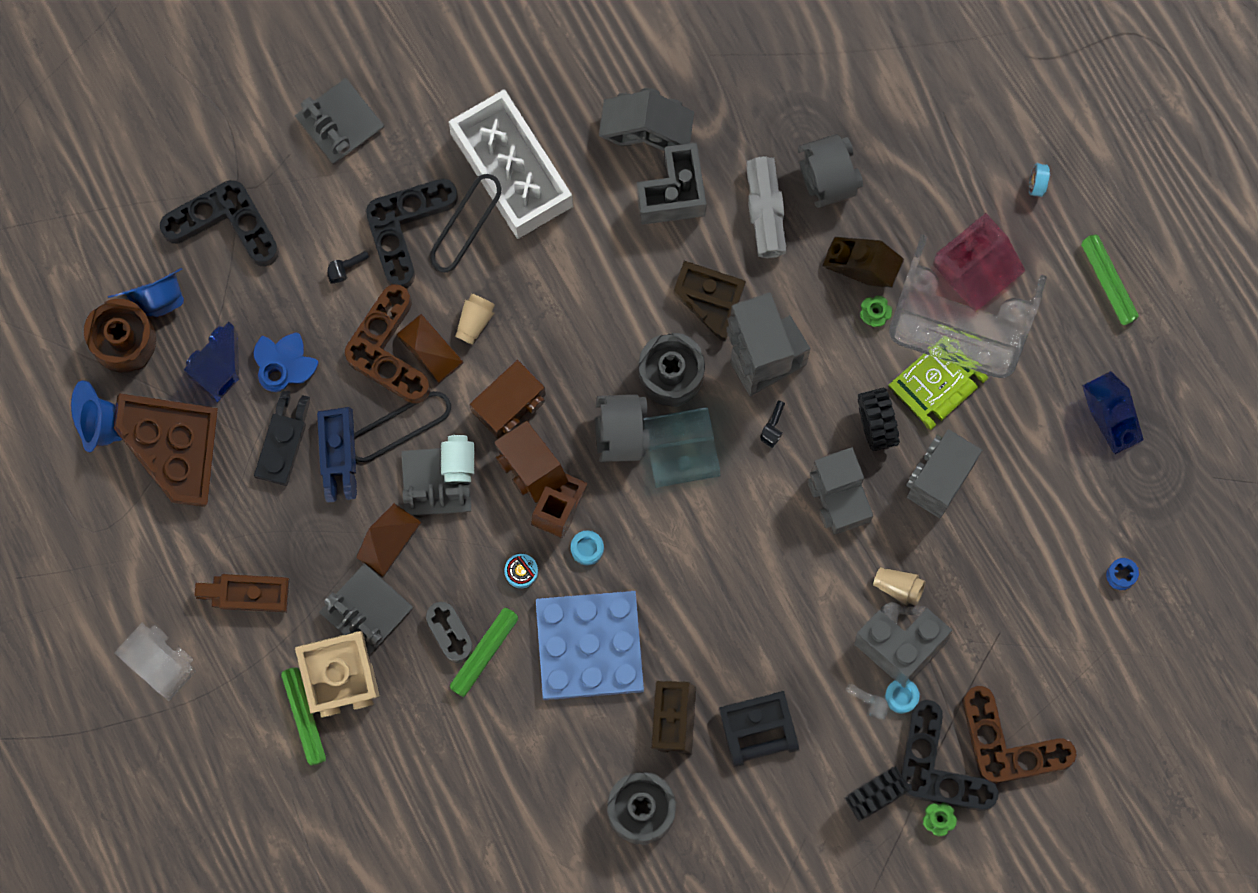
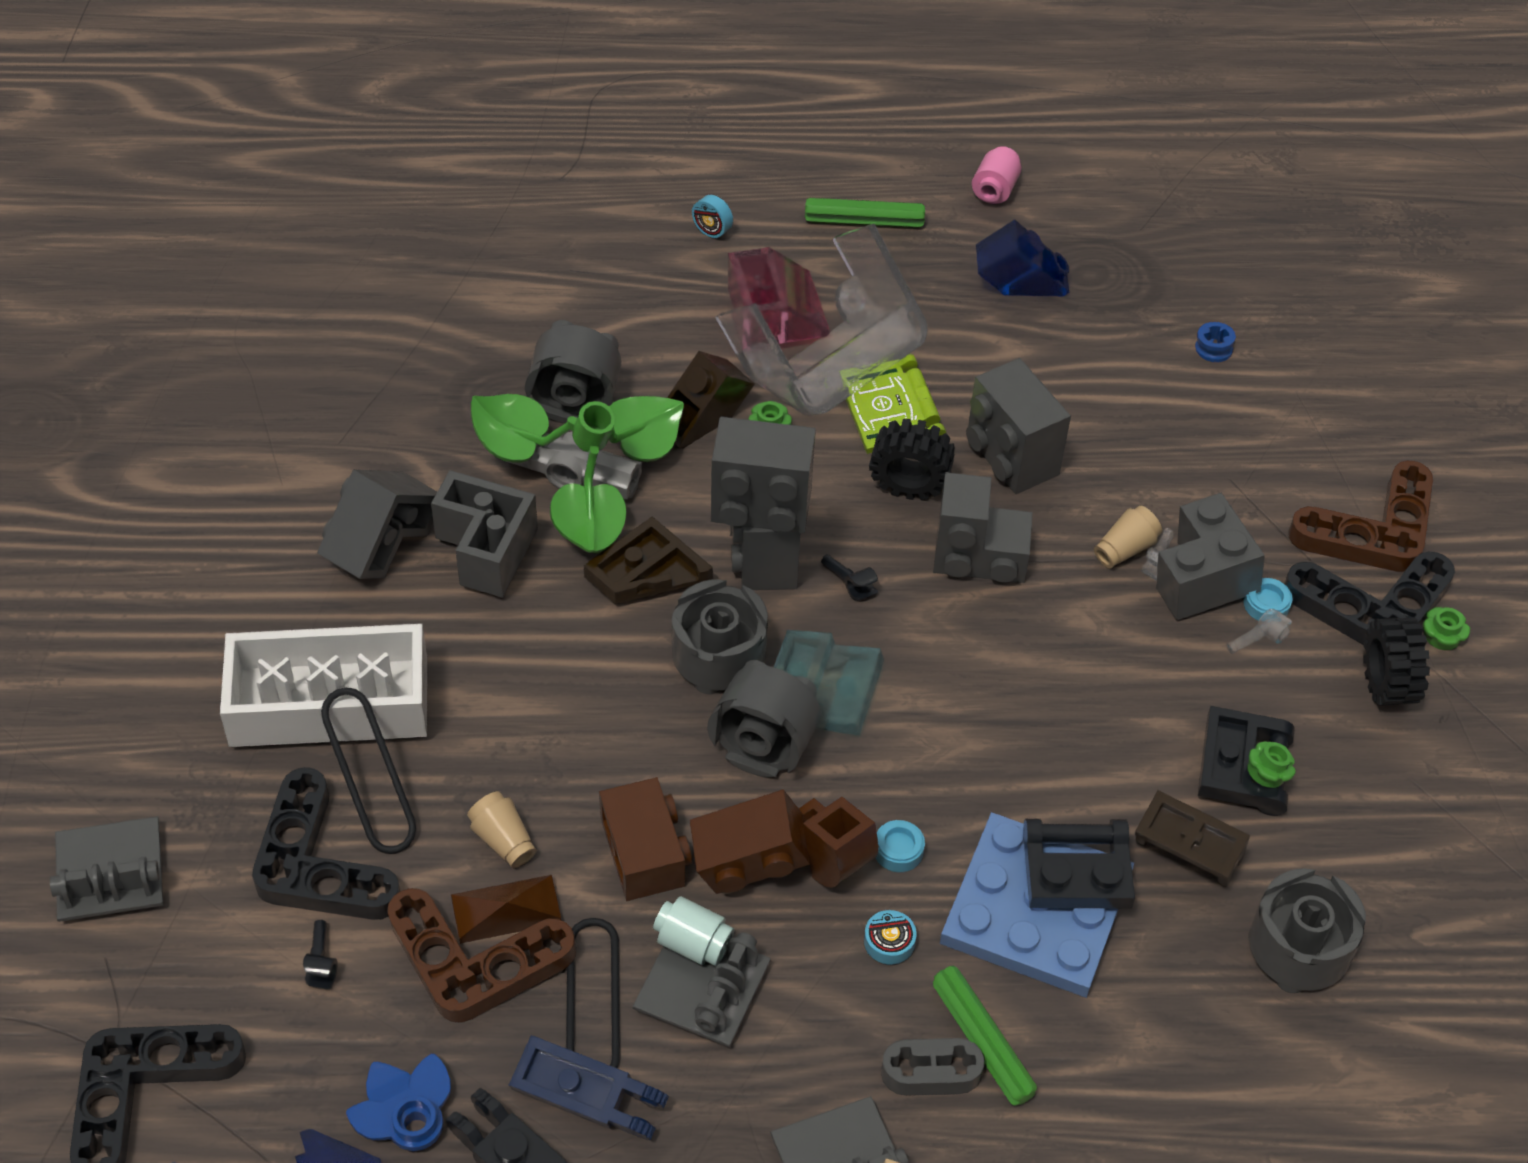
camera: 65 degrees left, 25 degrees down
(387, 539) = (752, 1083): reddish brown slope -> none
(607, 662) = (1078, 878): none -> black plate
(719, 240) = (588, 513): none -> bright green plant
(743, 743) = (1271, 764): none -> bright green plate
(1199, 353) = (997, 175): none -> bright pink brick

